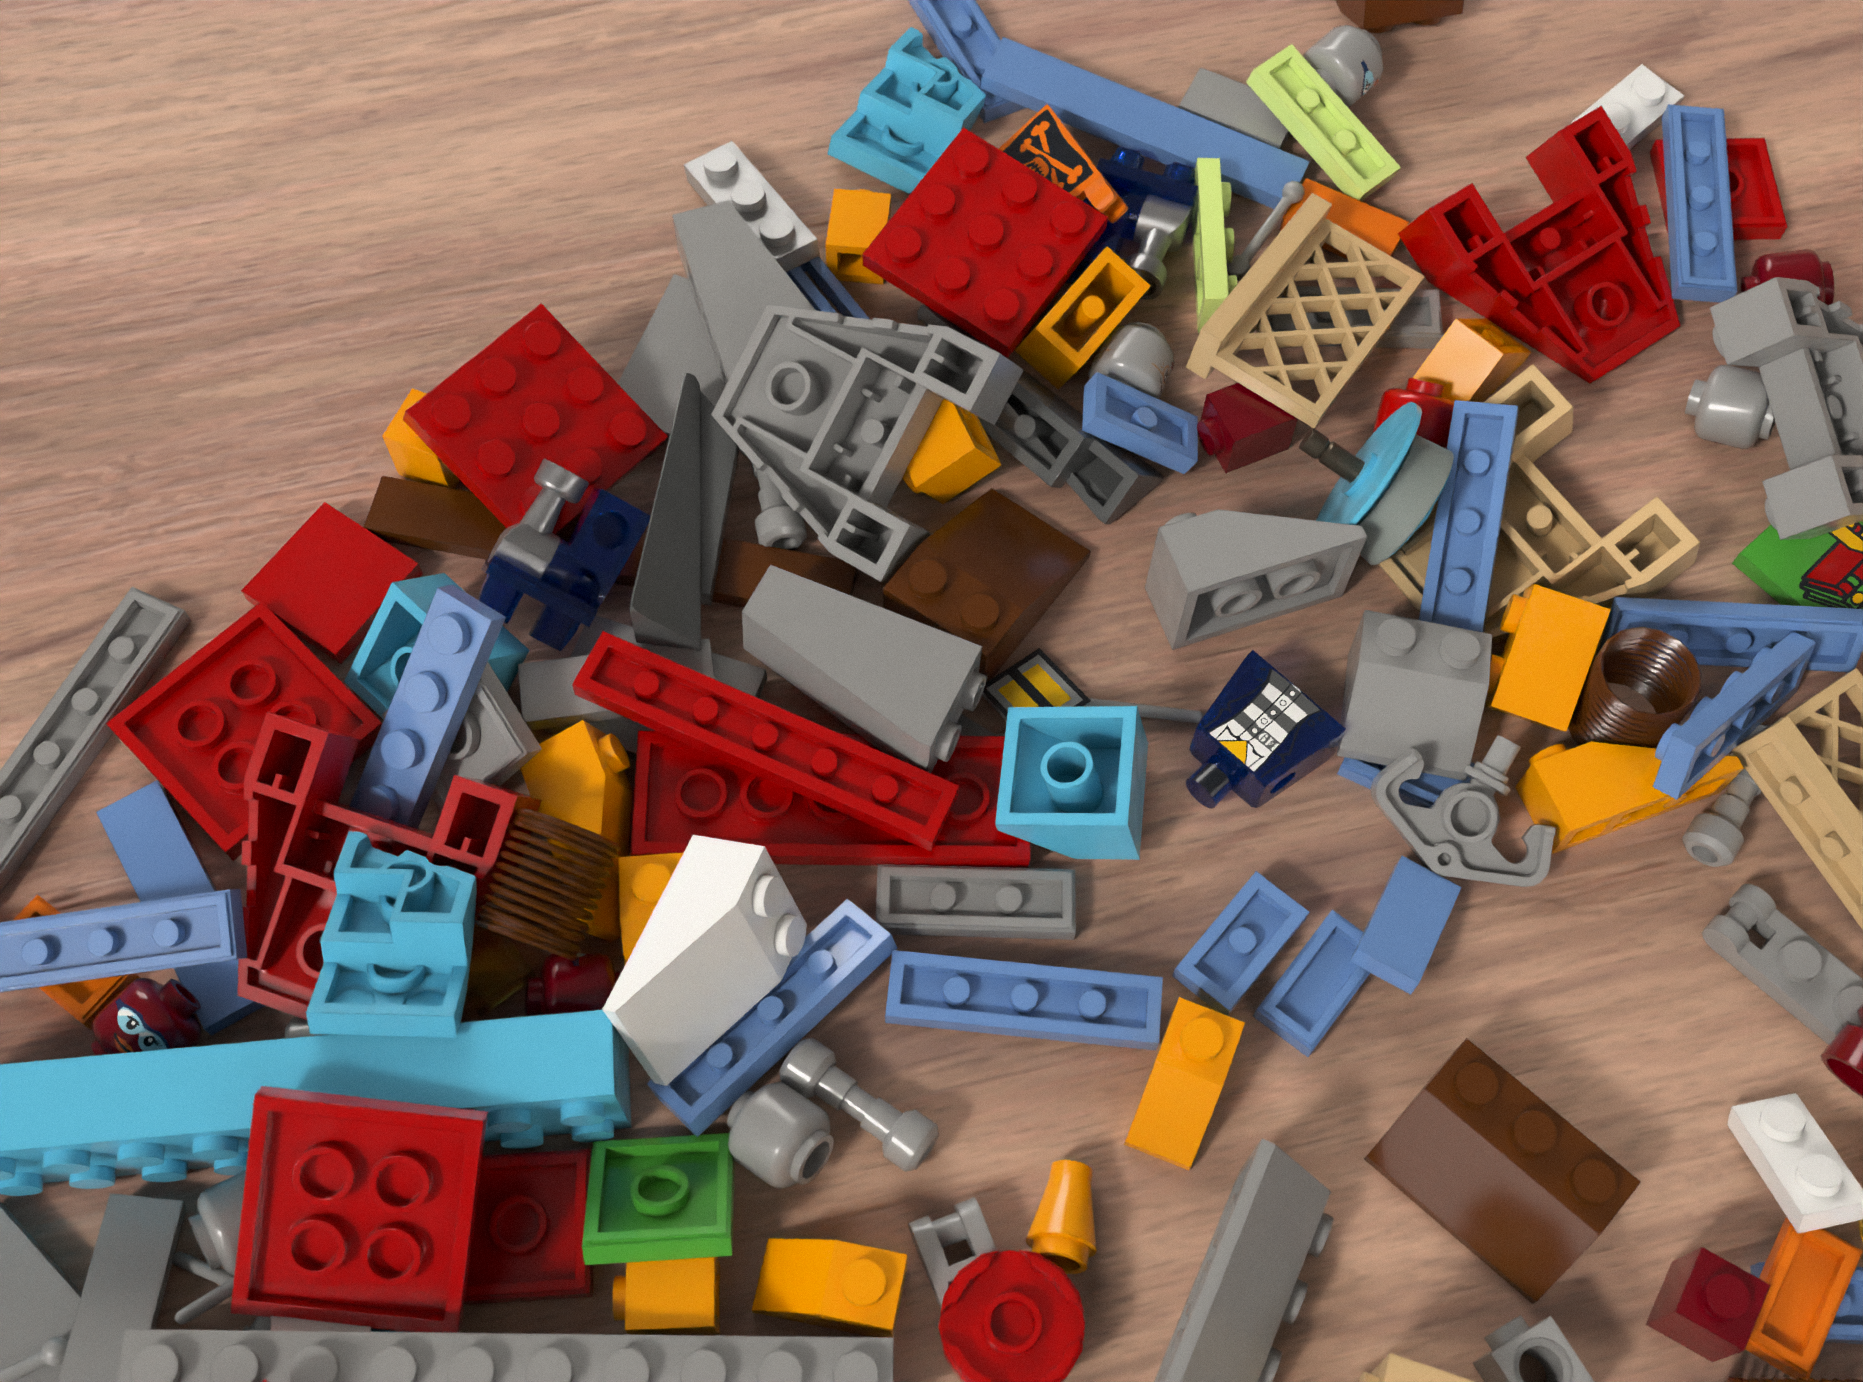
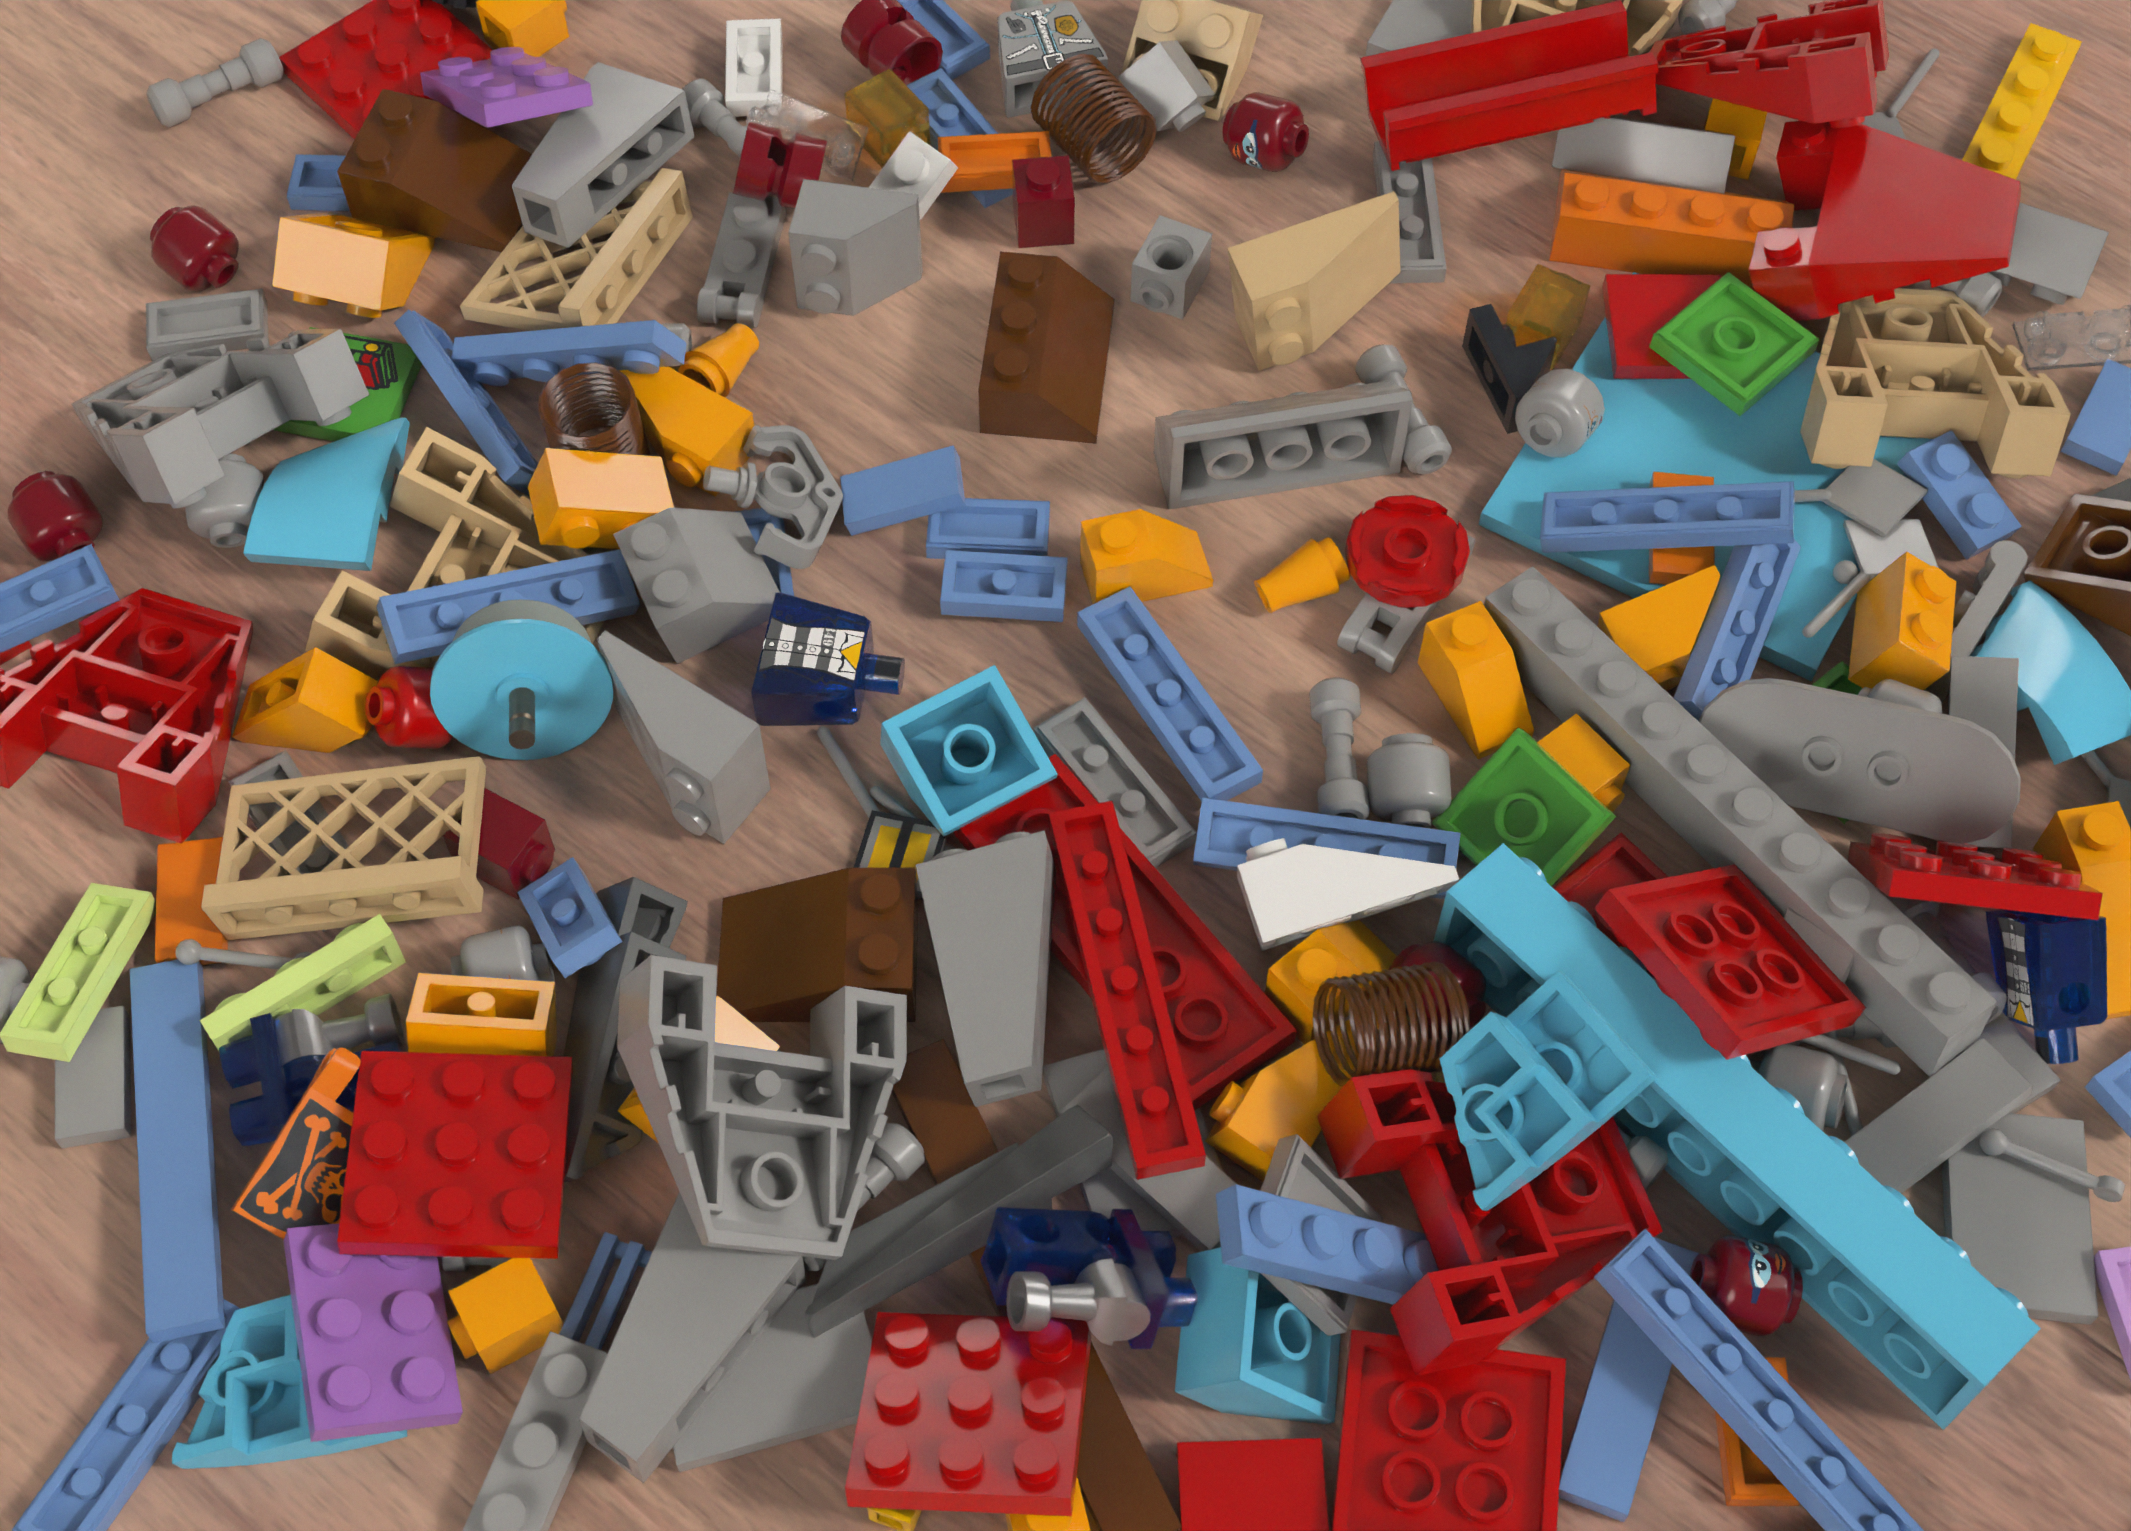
camera: 125 degrees left, 5 degrees down
(890, 136) = (369, 1338): none -> medium lavender plate
(1668, 866) = (721, 359): none -> light orange cone
(1693, 465) = (329, 501): none -> medium azure slope
(1738, 1042) = (853, 246): none -> light grey slope

